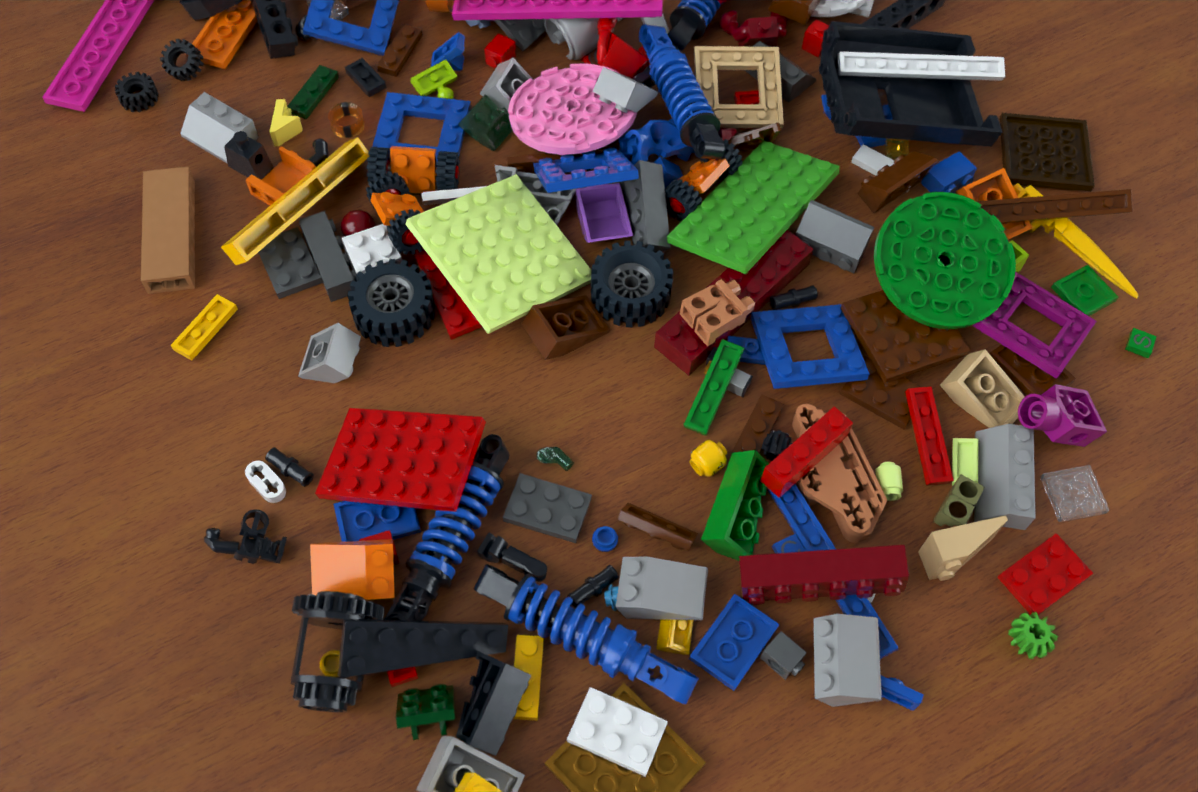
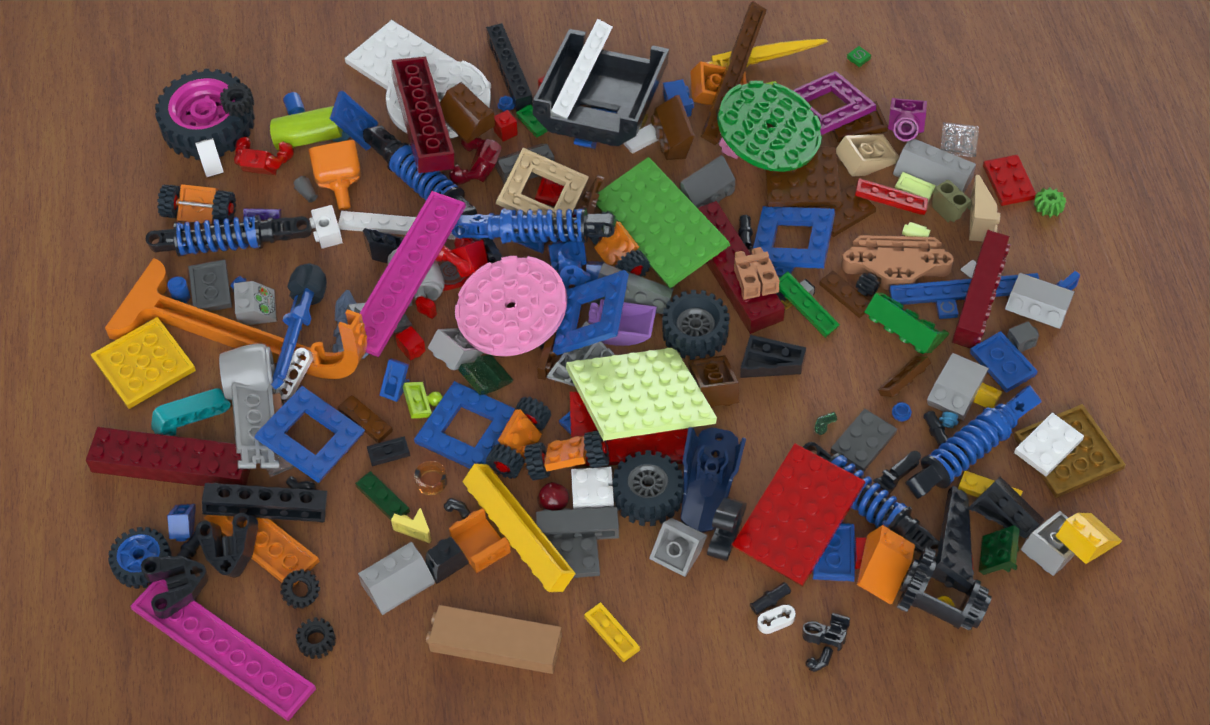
camera: 65 degrees left, 5 degrees down
(363, 387) = (727, 524): none -> black connector
(432, 352) = (708, 478): none -> dark blue piece
(445, 196) = (556, 414): white tile -> none
(551, 50) = (426, 307): none -> red plate
(616, 368) = (771, 358): none -> black wedge
(623, 91) = (525, 260): slope -> none
(708, 458) = (861, 328): yellow head -> none
(806, 452) = (888, 264): red brick -> none
(1046, 151) = (682, 32): dark brown plate -> none
(1085, 291) = (805, 67): green tile -> none

